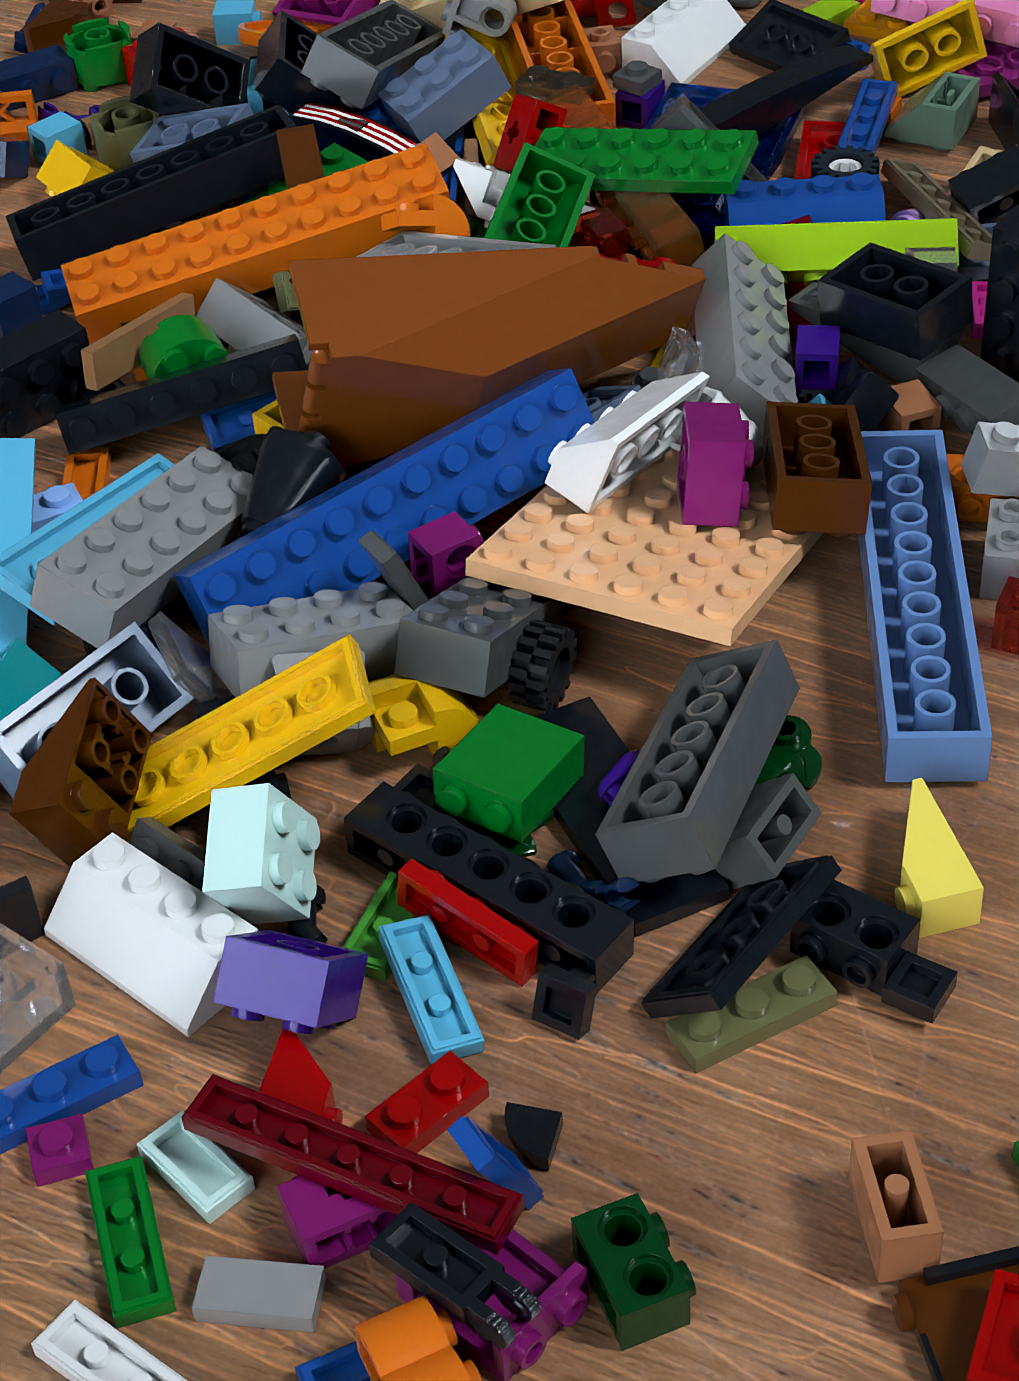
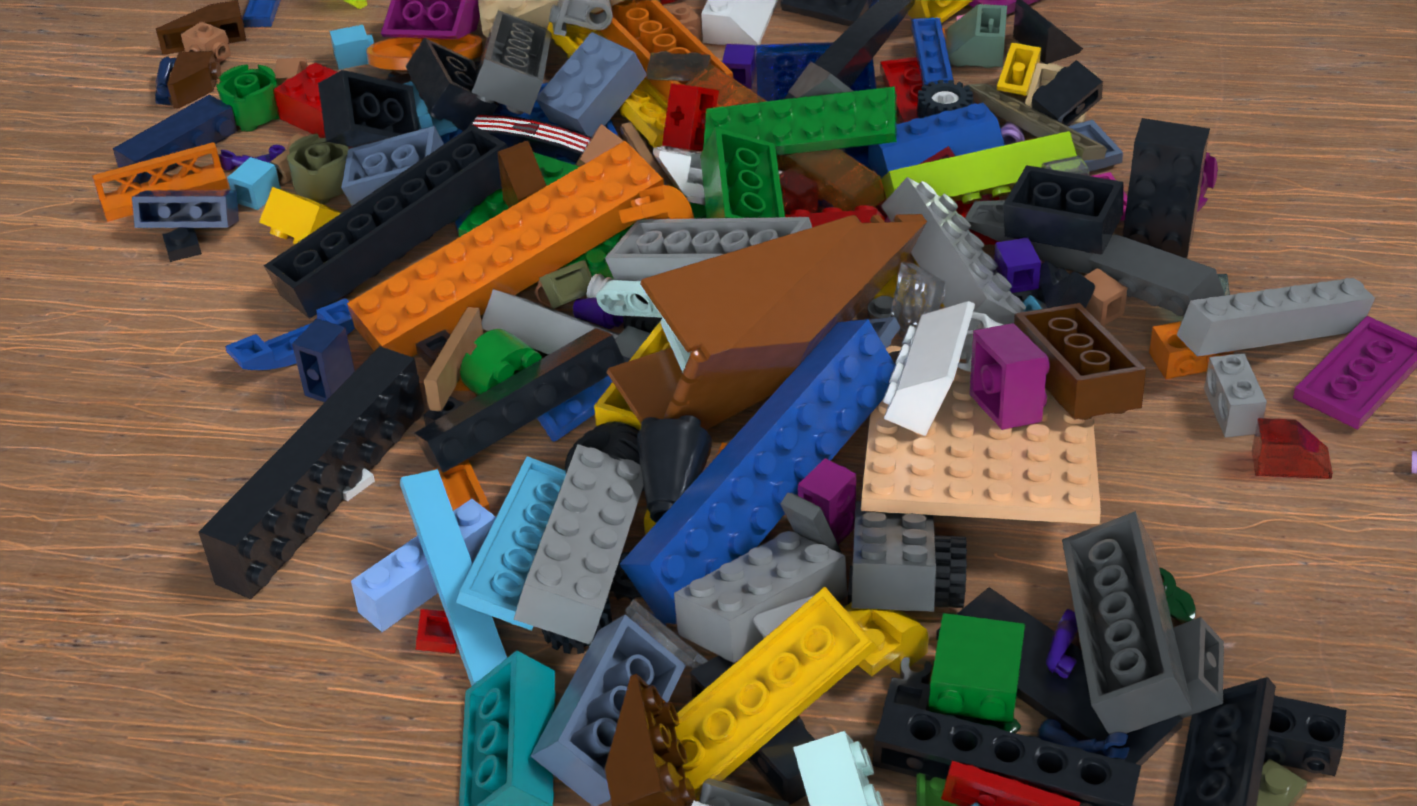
camera: 20 degrees left, 0 degrees up
(637, 78) = (735, 47): dark grey plate -> none
(919, 987) = (1363, 762): black plate -> none
(921, 615) = (1212, 471): medium blue brick -> none
(935, 873) = (1320, 663): light yellow slope -> none
(955, 148) = (1019, 69): none -> yellow slope

